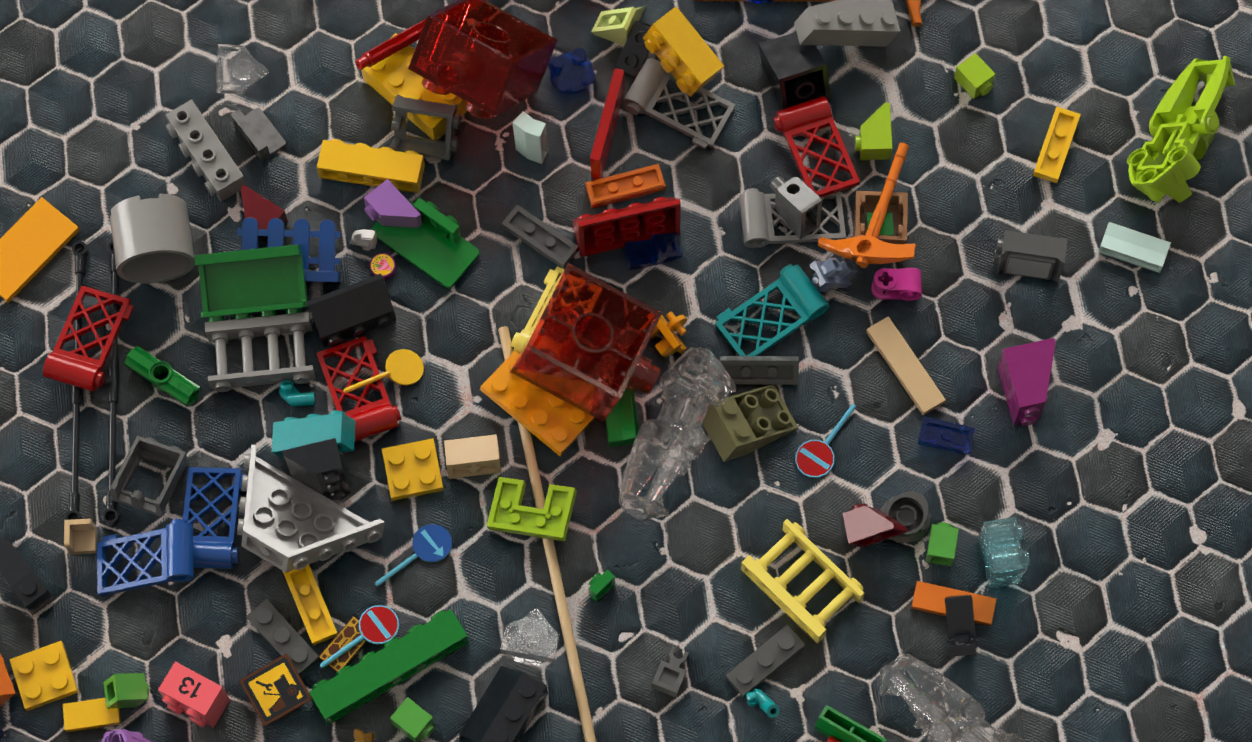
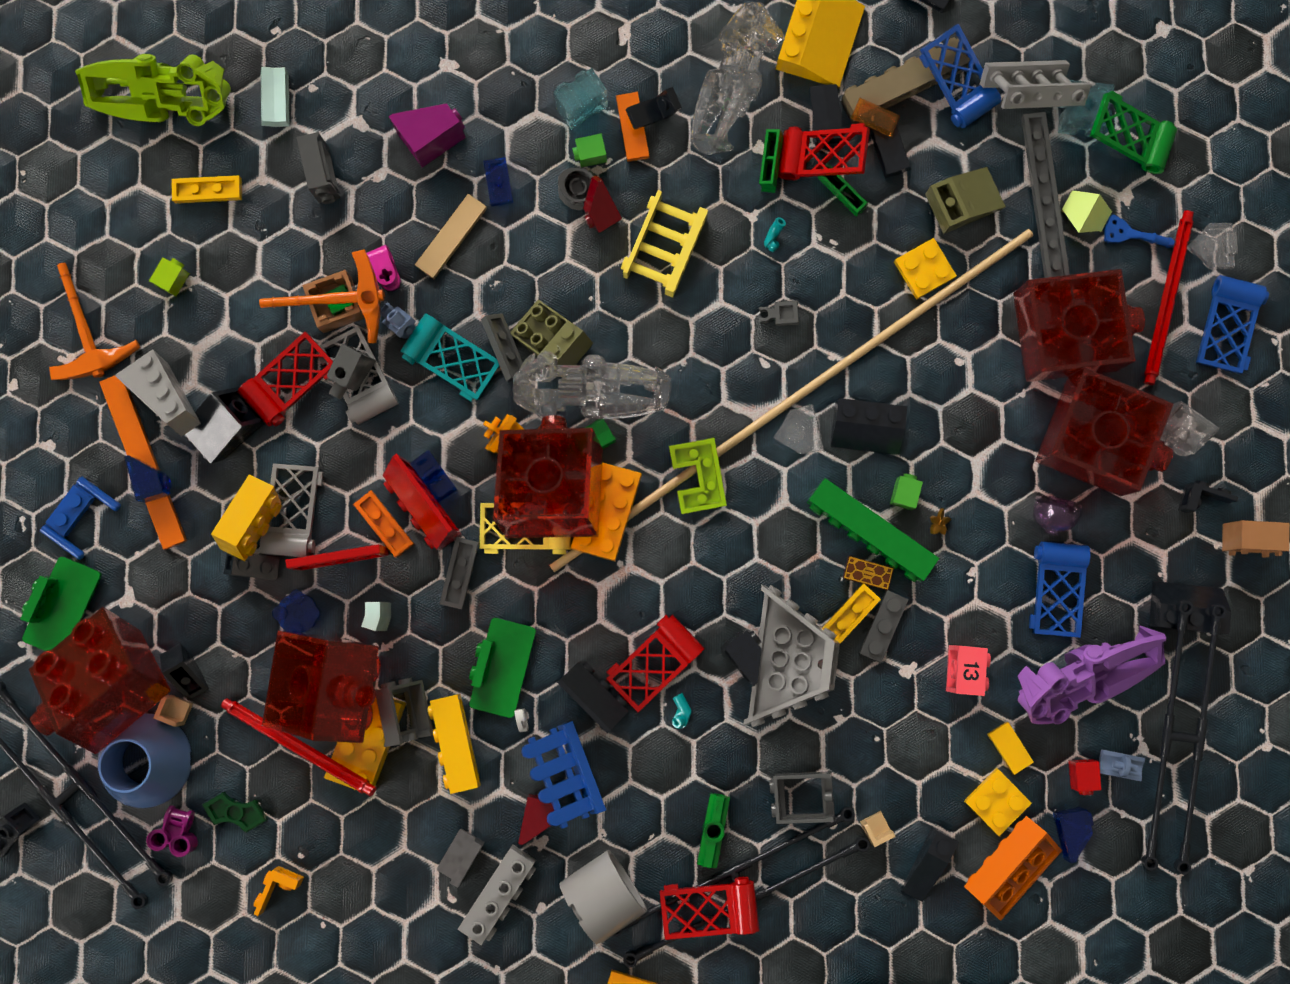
camera: 115 degrees left, 15 degrees up
(126, 690) = (985, 727): bright green brick -> none
(175, 552) = (867, 739): blue piece -> none
(214, 550) = (843, 720): blue piece -> none
(236, 69) = (410, 905): clear plate -> none
(246, 330) = (646, 778): light grey fence -> none
(252, 282) = (605, 792): green panel -> none
(275, 690) = (930, 610): piece -> none
(313, 429) = (714, 676): teal brick -> none
(376, 626) = (844, 555): piece -> none
(384, 265) = (538, 693): tile -> none
(391, 207) = (486, 708): medium lavender slope -> none
(401, 366) = (620, 635): yellow piece -> none
(412, 469) = (702, 587): yellow plate -> none
(430, 544) = (757, 545): blue piece -> none
(472, 456) = (672, 543): tan hinge -> none
(600, 585) = (735, 396): green plate -> none
(617, 23) = (235, 594): yellowish green slope -> none
(765, 661) = (739, 248): dark grey plate -> none
(817, 457) = (556, 276): piece -> none
(876, 136) = (257, 335): lime slope -> none

